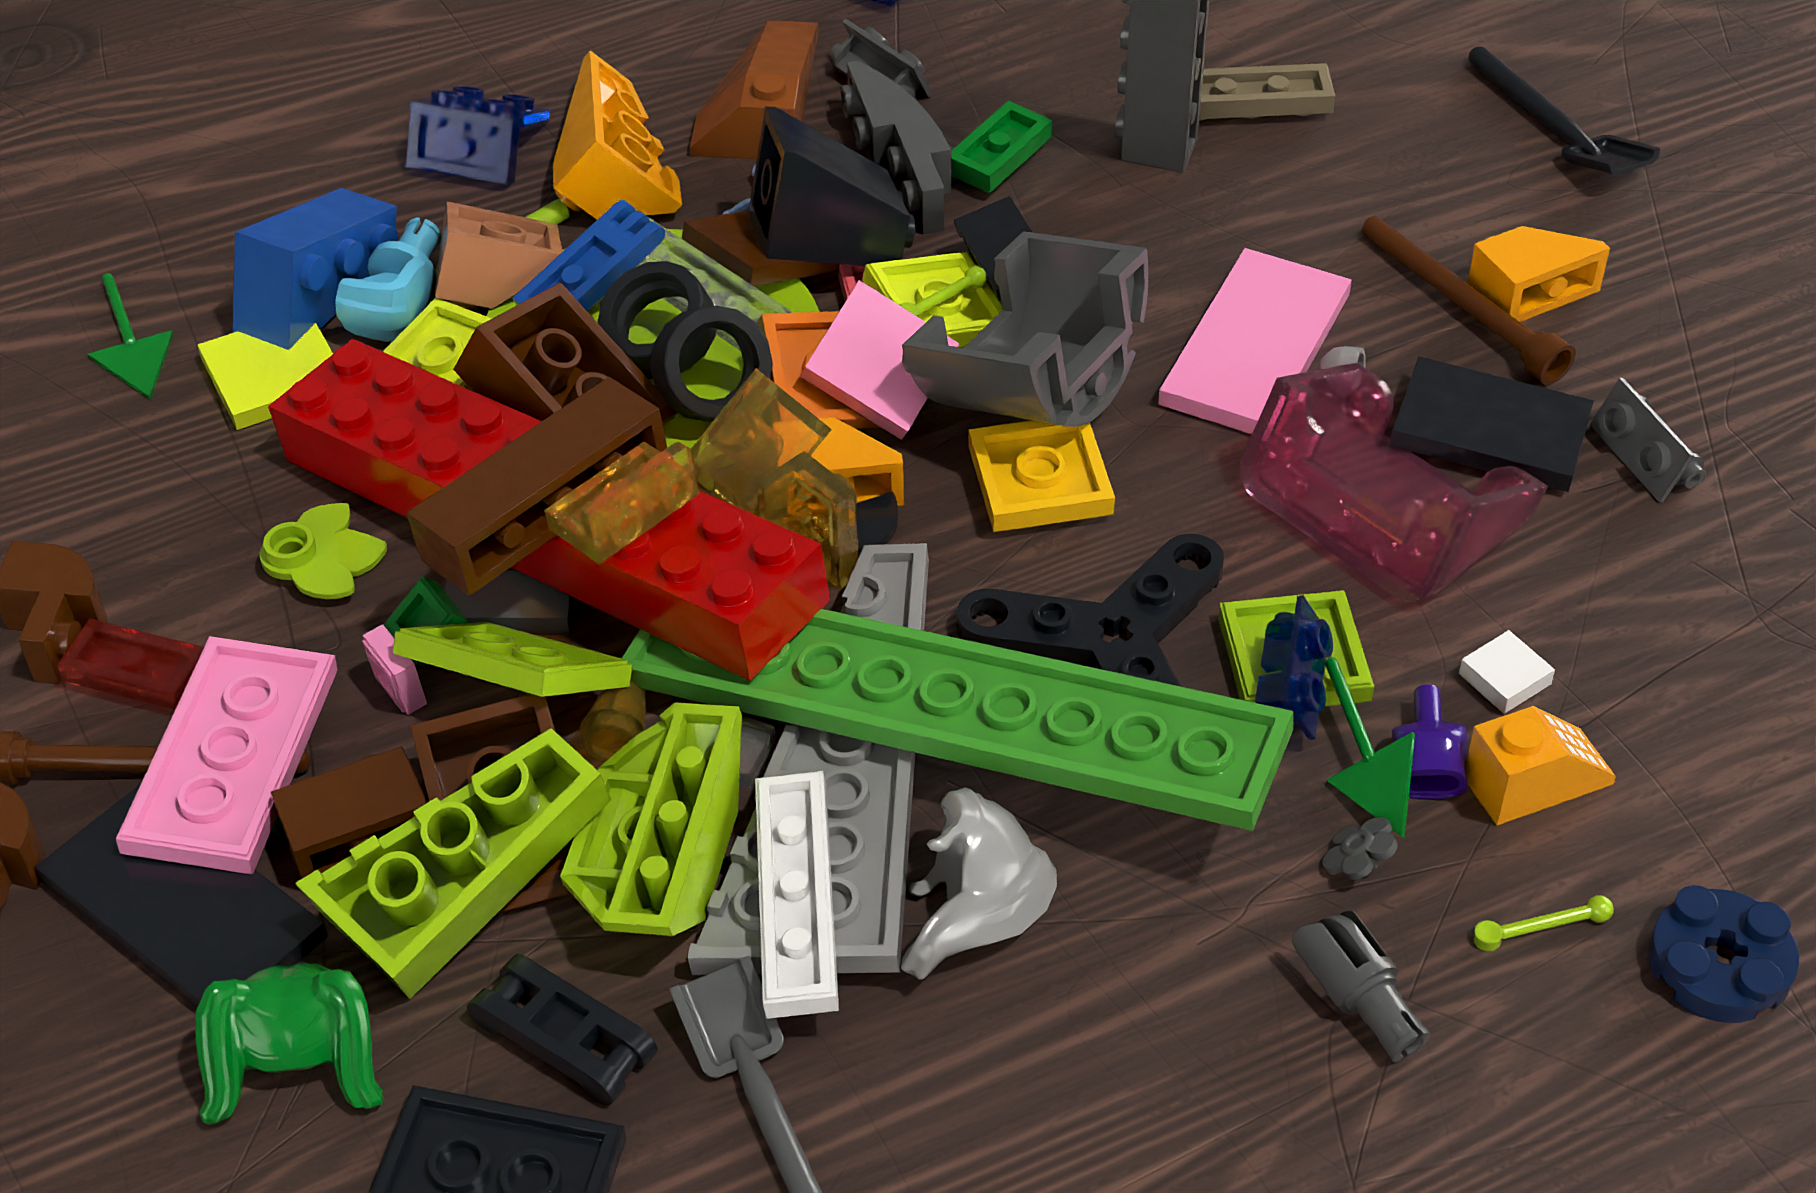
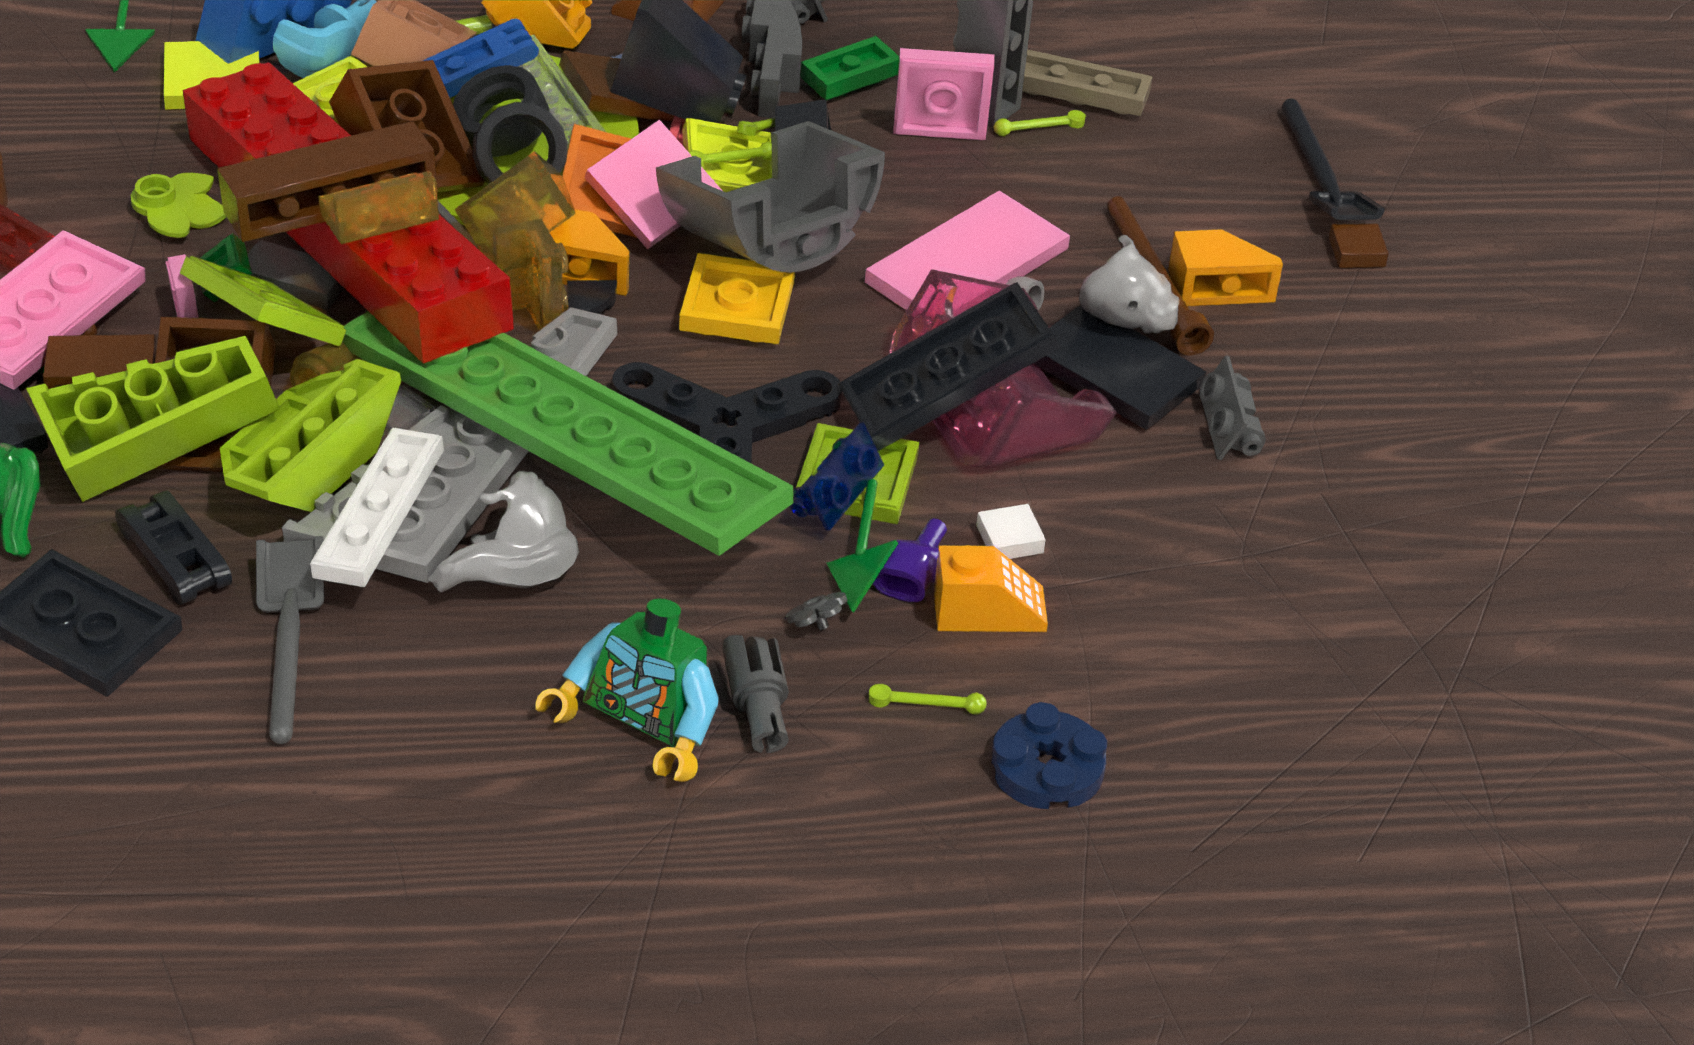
camera: 15 degrees right, 5 degrees down
(944, 255) = (750, 129): none -> lime hinge
(1132, 151) = (943, 94): none -> bright pink tile
(1244, 1020) = (648, 679): none -> torso
(1264, 136) = (1074, 119): none -> lime hinge
(1351, 490) = (948, 365): none -> black tile
(1476, 331) = (1130, 293): none -> light grey piece
(1648, 198) = (1358, 245): none -> reddish brown tile

